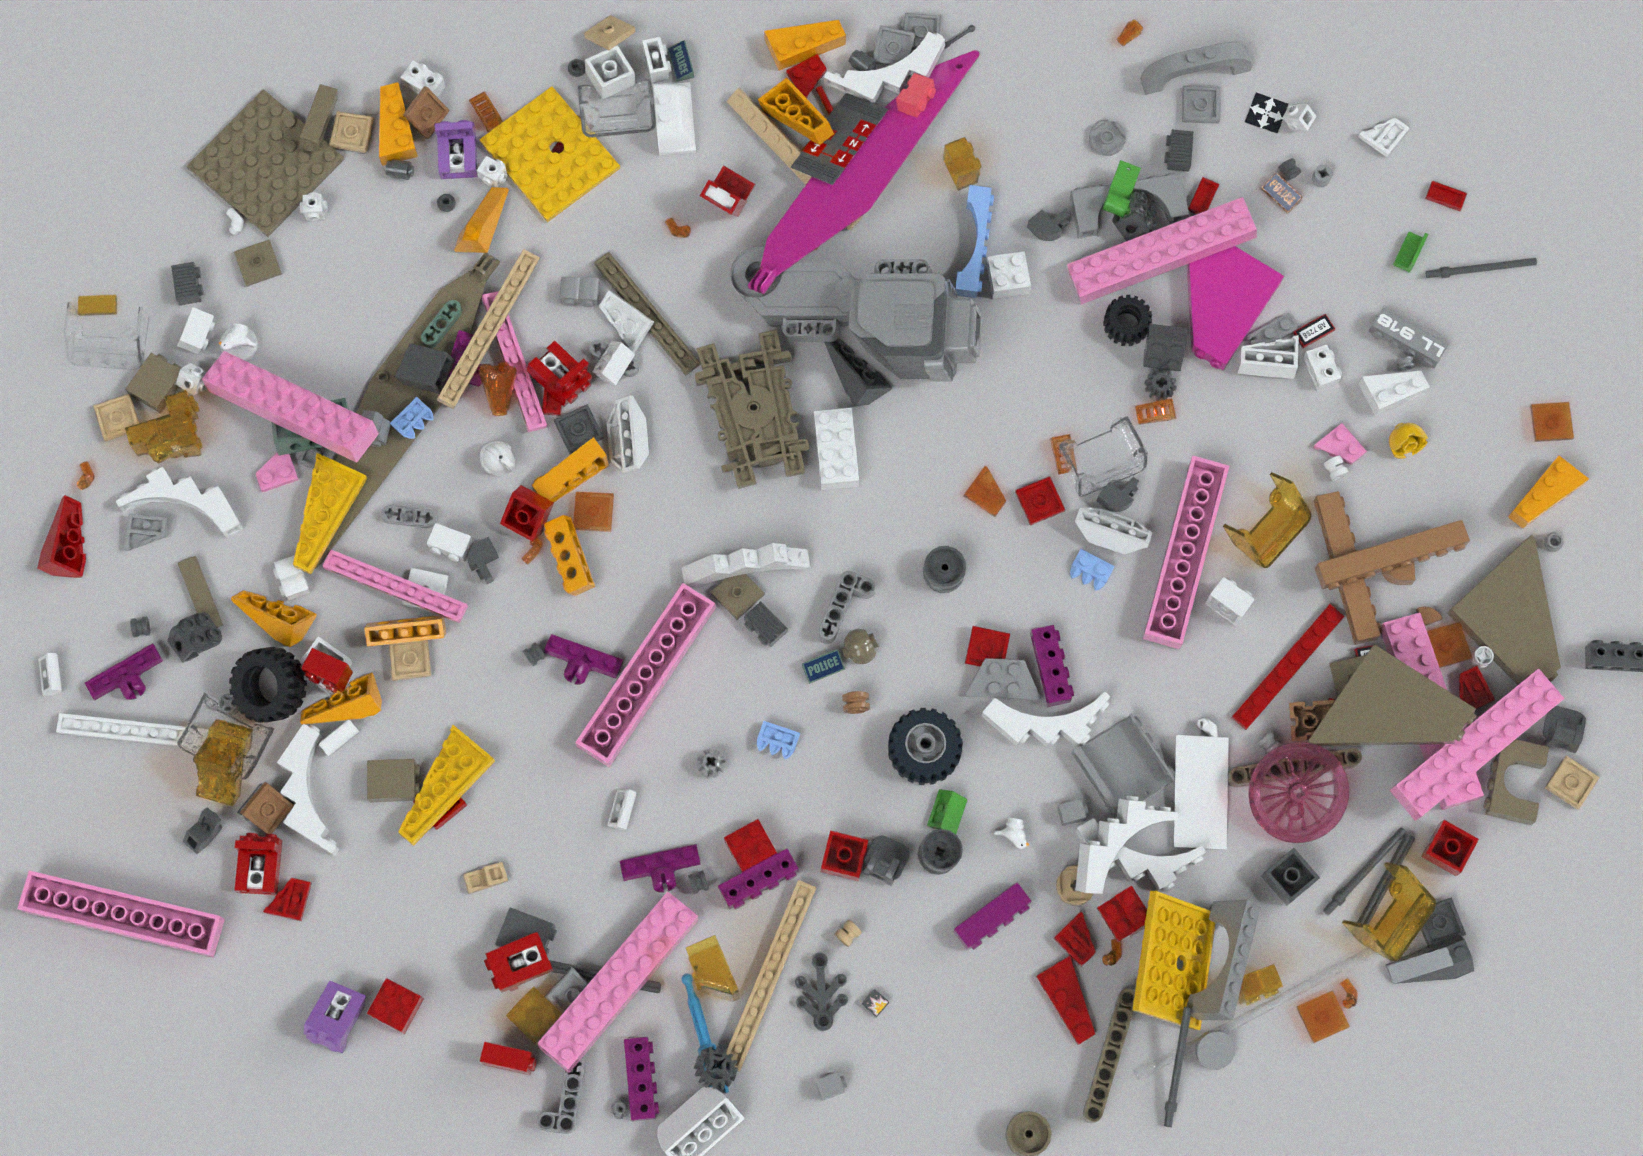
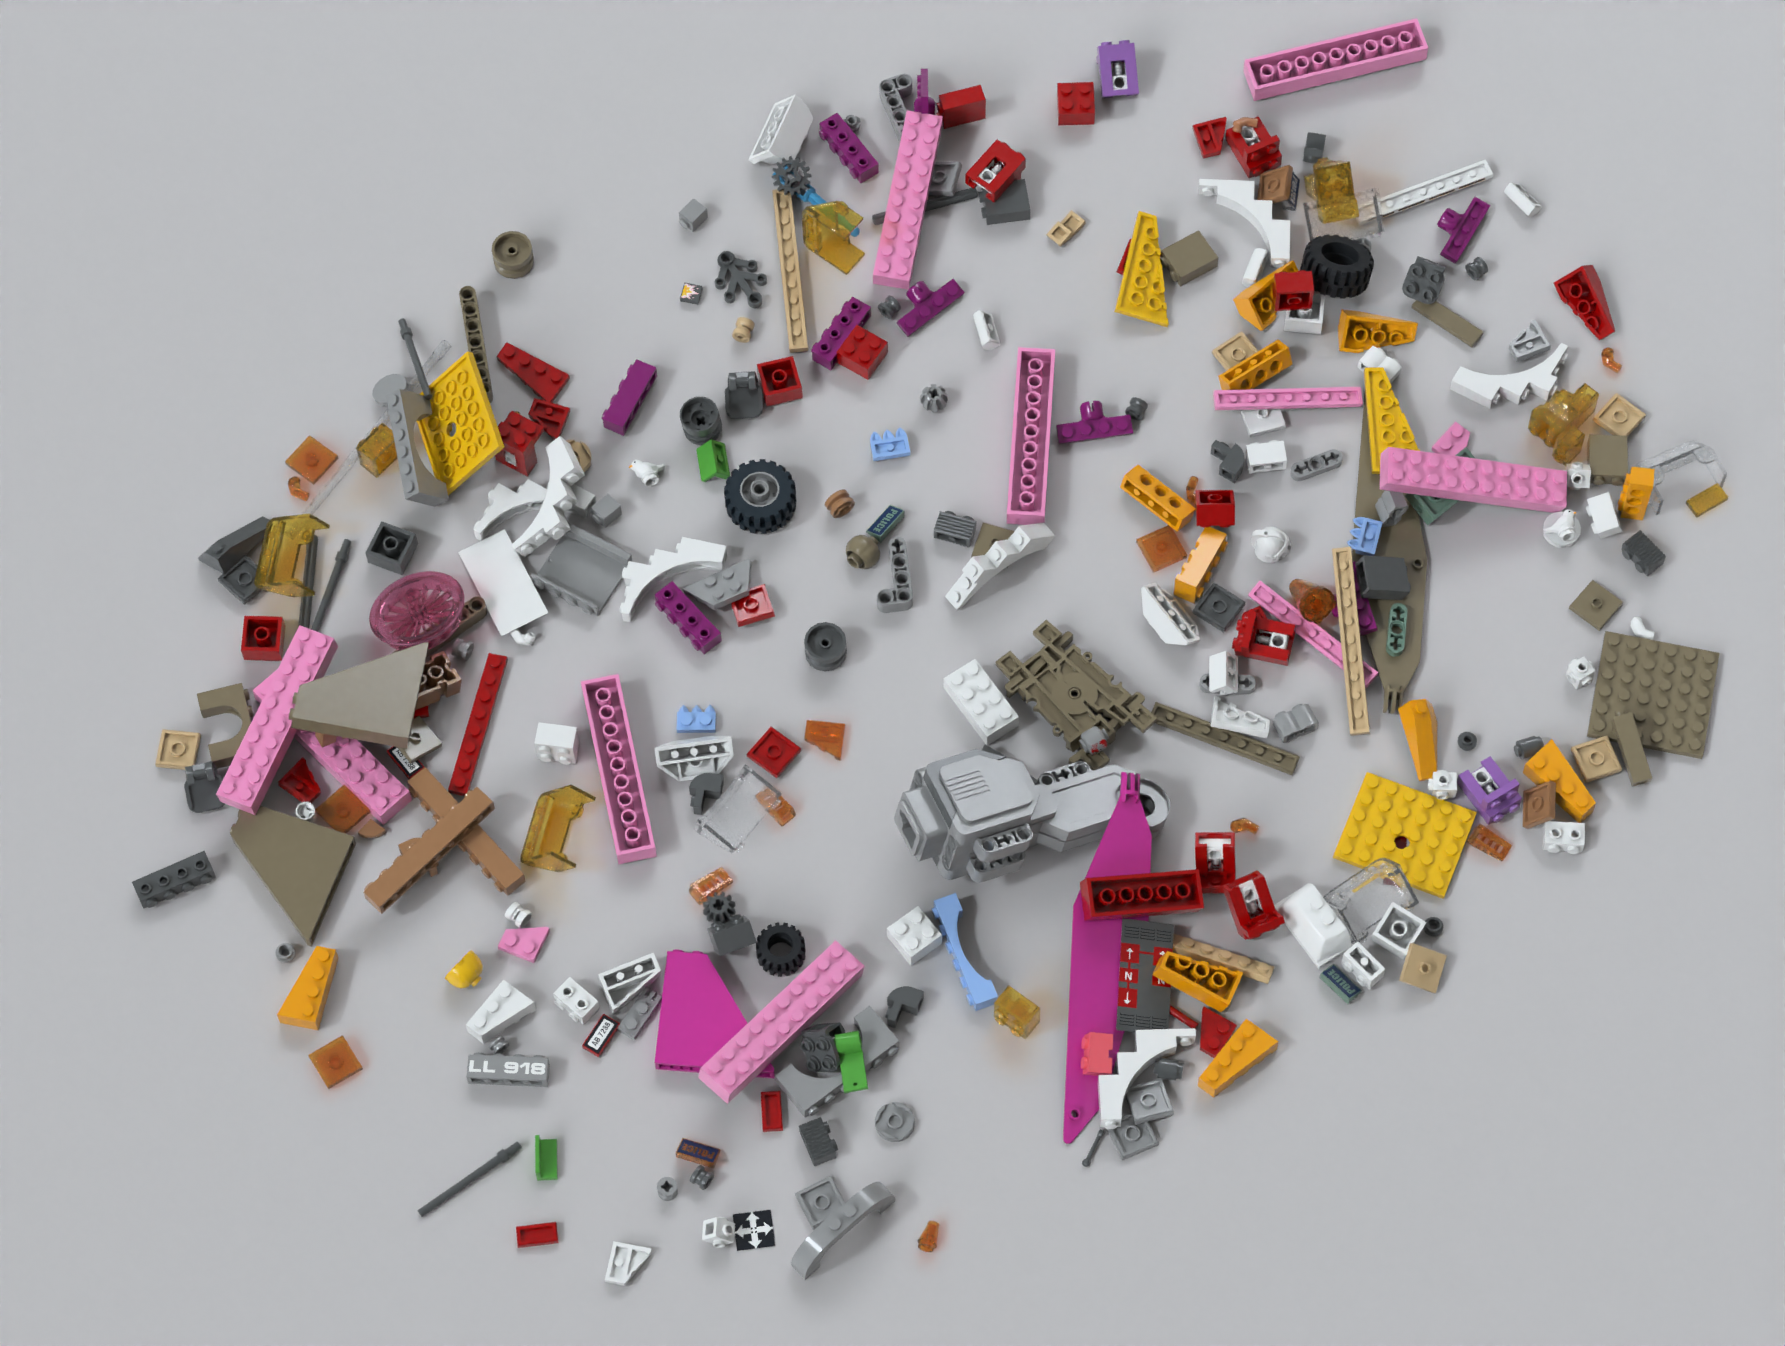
camera: 155 degrees right, 10 degrees down
(158, 319) = (1636, 493): none -> light orange brick
(254, 887) = (1244, 121): none -> nougat arm
(534, 1015) = (961, 146): clear yellow brick -> none
(540, 1084) = (923, 103): none -> magenta plate
(717, 141) = (1257, 920): none -> red brick
(764, 348) = (1094, 740): none -> light grey head
(807, 188) = (1141, 895): none -> red brick

